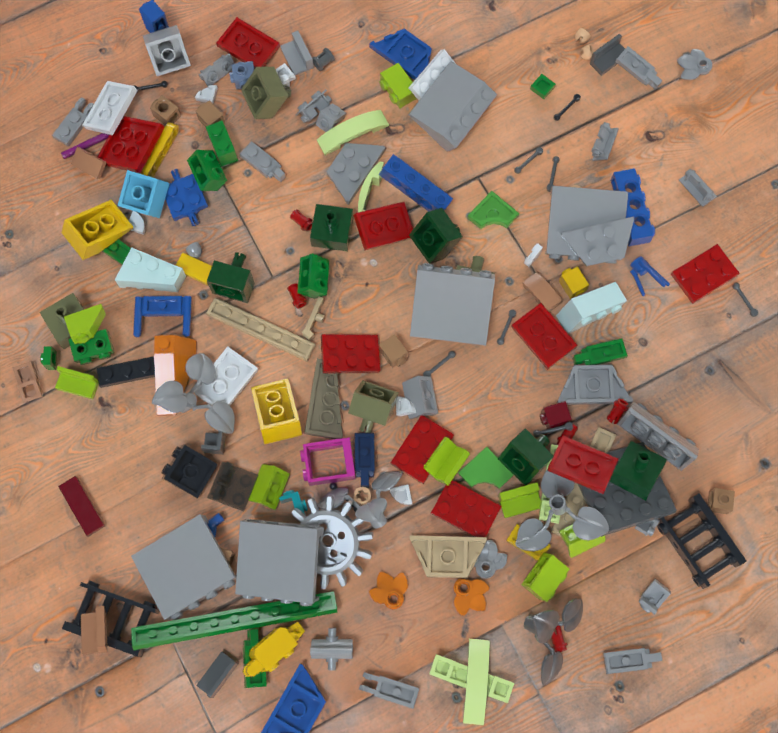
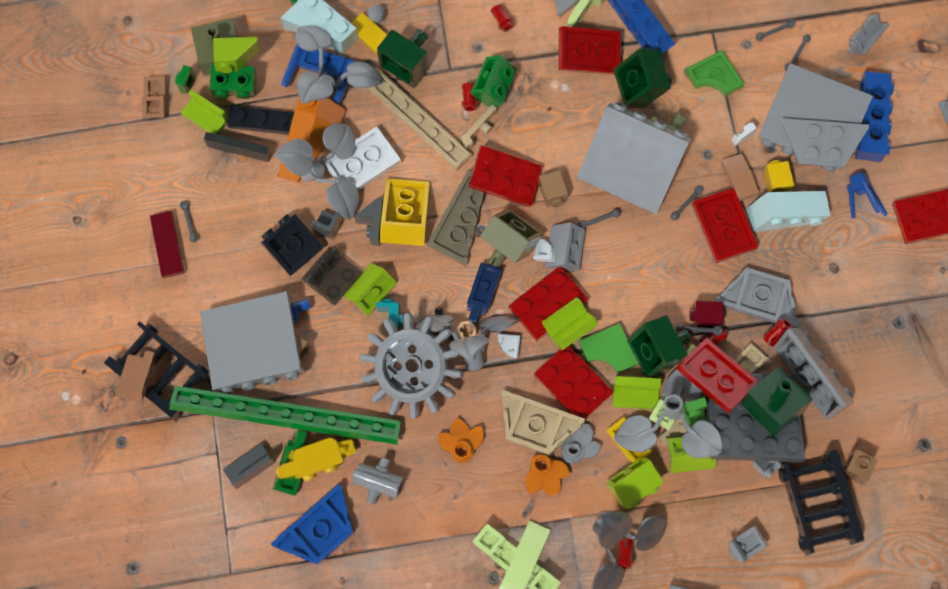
camera: 20 degrees right, 0 degrees up
(85, 467) = (184, 206): none -> dark grey hinge
(114, 402) = (237, 146): none -> pearl dark grey tile
(169, 330) = (319, 87): none -> light grey plant
(251, 423) = (372, 216): none -> dark grey slope
(278, 561) = (351, 368): light grey panel -> none
(326, 445) = (464, 268): dark pink window -> none
(331, 227) = (531, 35): dark green brick -> none
(392, 690) = (427, 546): light grey hinge -> none
(575, 501) = (695, 411): none -> bright green bracket
(601, 353) = (782, 264): green hinge -> none

